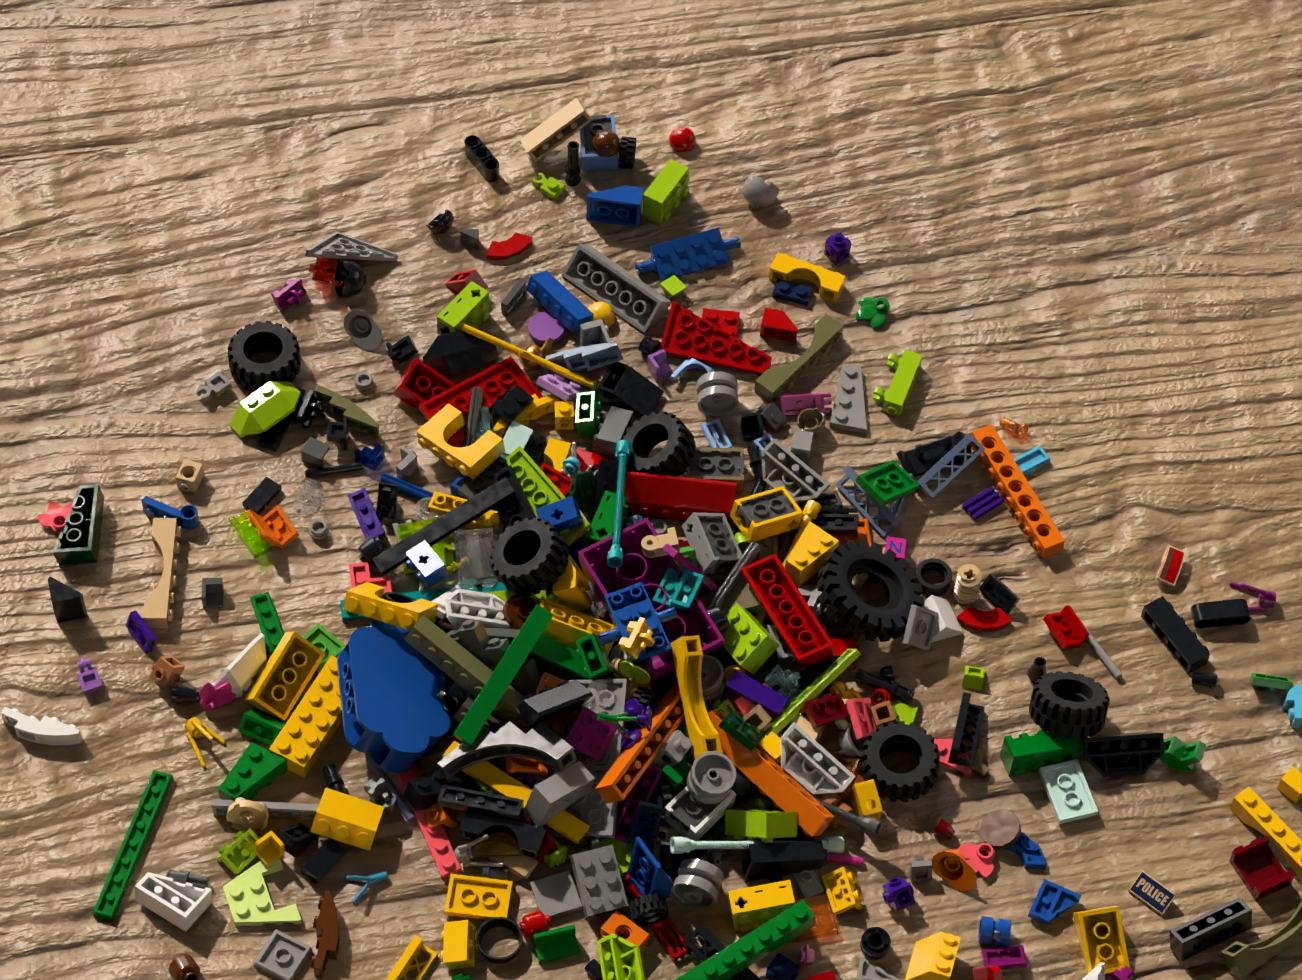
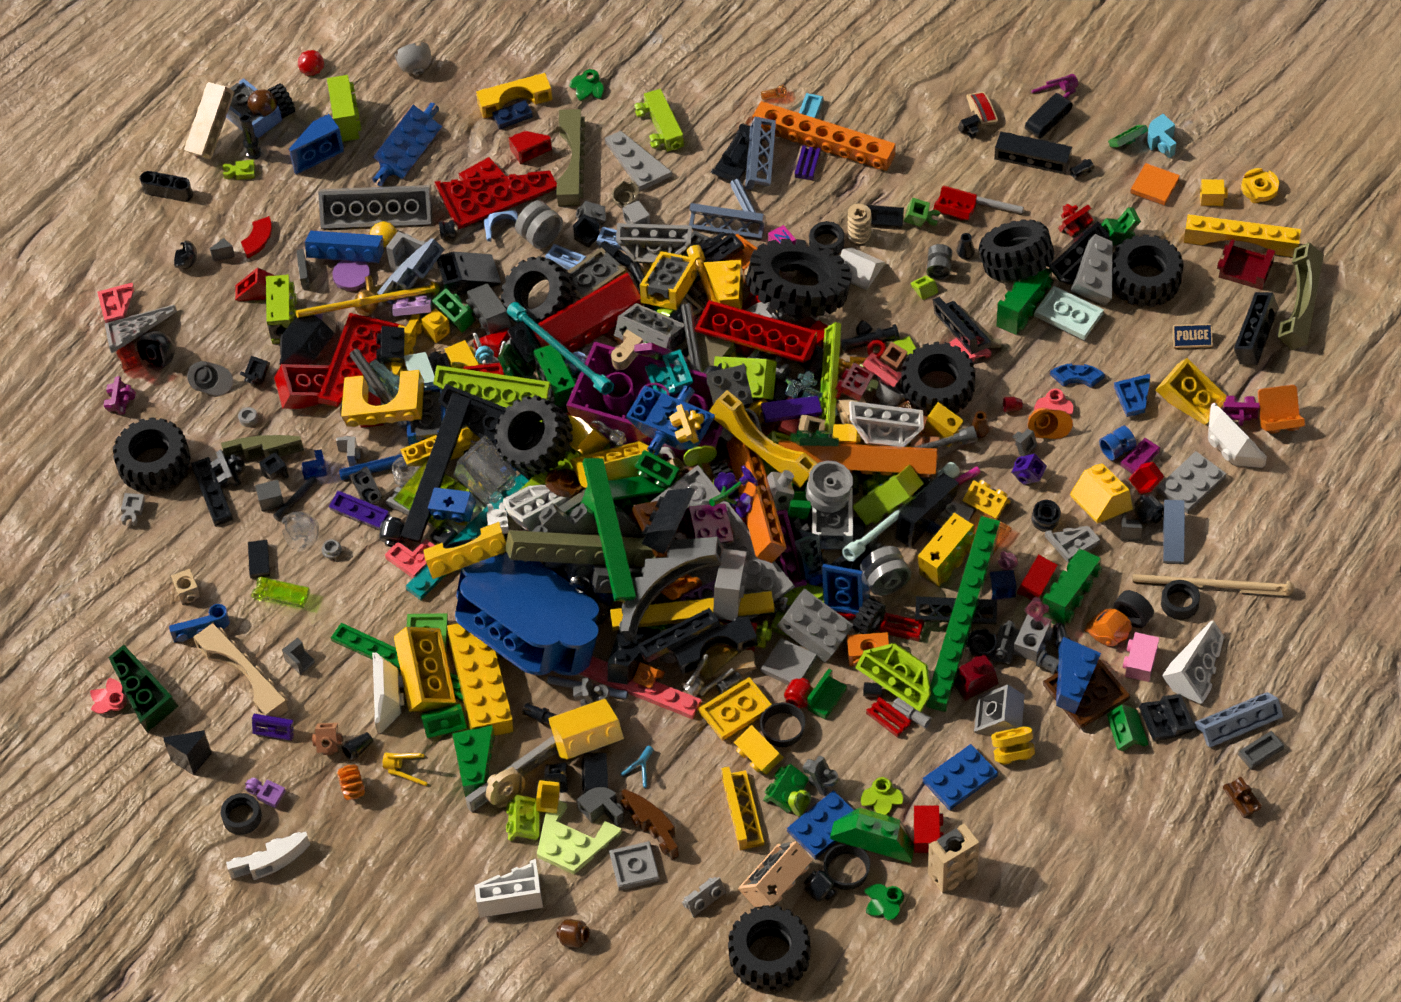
camera: 35 degrees left, 0 degrees up
(55, 666) = (235, 801): none -> black tyre
(132, 845) = (434, 882): green tile -> none
(148, 719) = (351, 782): none -> orange gear
(183, 877) = (505, 868): dark grey axle -> none
(214, 697) = (384, 726): dark pink plate -> none
(265, 408) = (194, 493): lime wedge -> none
(274, 527) = (298, 569): orange bracket -> none
(306, 885) = (600, 801): none -> dark grey brick
(359, 220) = (115, 301): none -> coral wing
(406, 583) = (444, 534): none -> black plate
(561, 514) = (523, 382): blue brick -> none
(658, 366) = (469, 240): medium lavender panel -> none
(672, 286) = (418, 174): lime slope -> none
(713, 634) = (731, 379): none -> dark grey hinge
(797, 403) = (603, 189): dark pink hinge -> none
(837, 248) = (515, 58): dark purple brick -> none
(887, 483) = (731, 195): green plate -> none
(898, 826) = (980, 424): none -> reddish brown cone
(920, 627) = (859, 277): light grey tile -> none
(984, 620) = (891, 242): red tile -> none
(1000, 828) = (1050, 372): tile -> none
(1004, 665) = (939, 262): none -> dark grey wheel
(1026, 612) = (918, 213): none -> bright green brick
(1119, 772) = (1095, 271): none -> light grey wedge
(1144, 717) = (1082, 216): none -> red hips
(1145, 571) = (970, 125): none -> black tile
(1159, 828) = (1151, 252): none -> black tyre
(1254, 740) = (1155, 184): none -> orange tile

